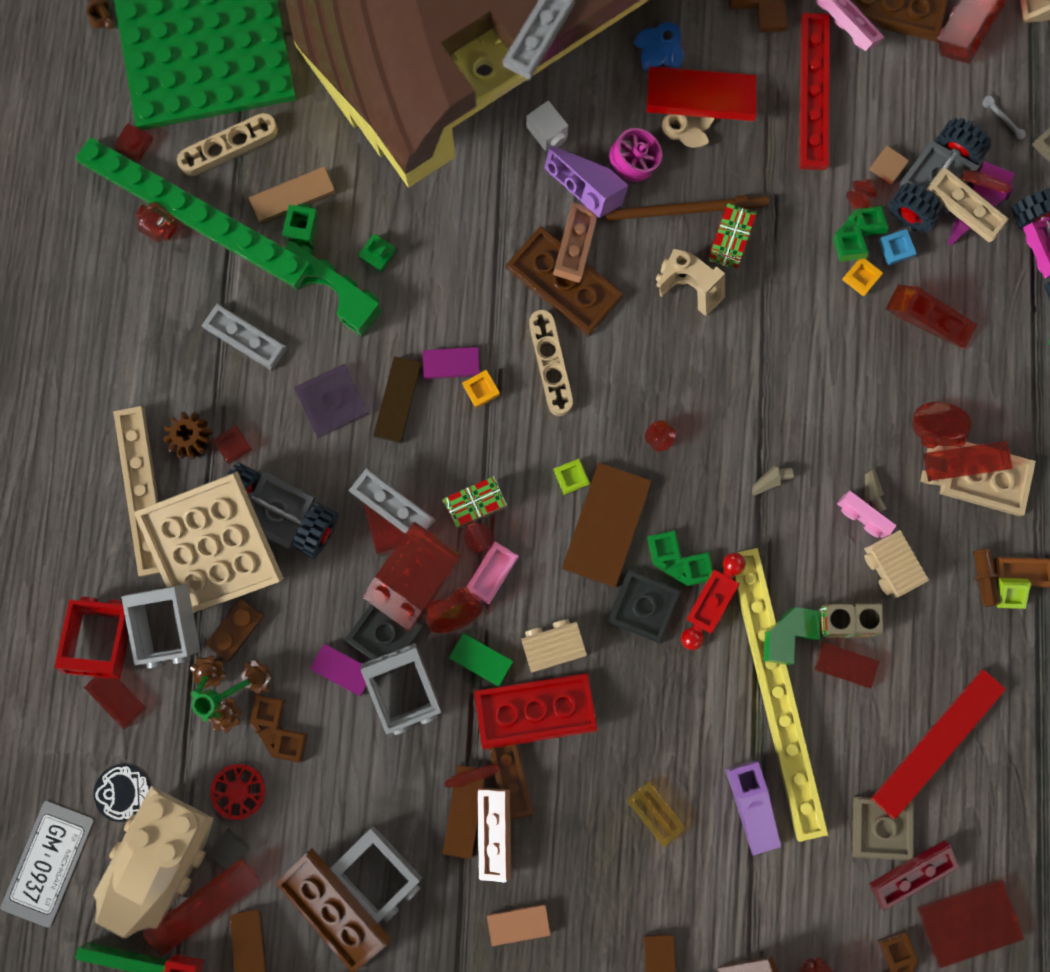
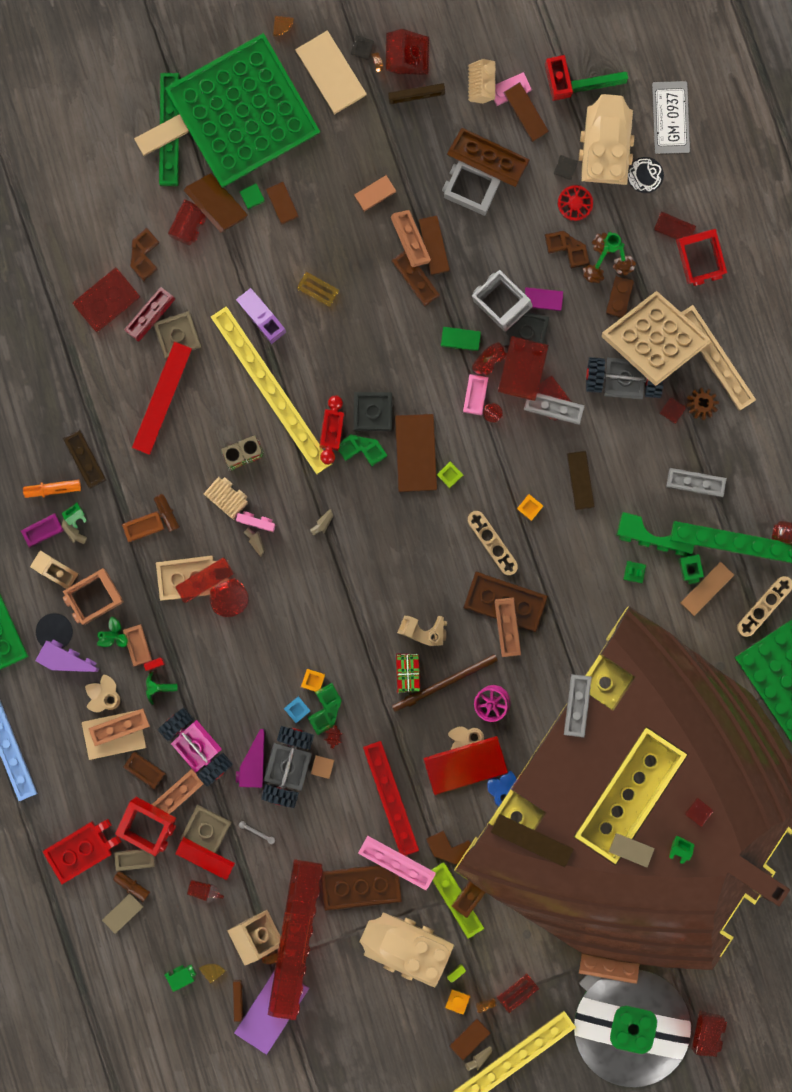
camera: 160 degrees right, 5 degrees up
(139, 627) = (668, 260): light grey window -> none
(202, 907) = (566, 129): clear red tile -> none
(331, 400) = (622, 463): clear purple tile -> none
(451, 363) = (556, 517): magenta tile -> none
(464, 778) = (443, 262): clear red piece -> none
(475, 502) = (503, 432): piece -> none
(535, 711) = (414, 320): red tile -> none
(547, 126) = (555, 699): white brick -> none
(553, 646) = (419, 363): tan brick -> none
(588, 181) = (512, 671): medium lavender slope -> none
(660, 436) = (404, 521): clear red wheel -> none
(780, 638) = (282, 422): green tile -> none
(846, 665) = (234, 424): clear red tile -> none
(931, 315) = (259, 670): clear red slope -> none
(967, 204) = (264, 749): tan tile -> none
(981, 179) = (256, 770): clear red piece -> none
(1013, 592) = (146, 509): lime tile -> none

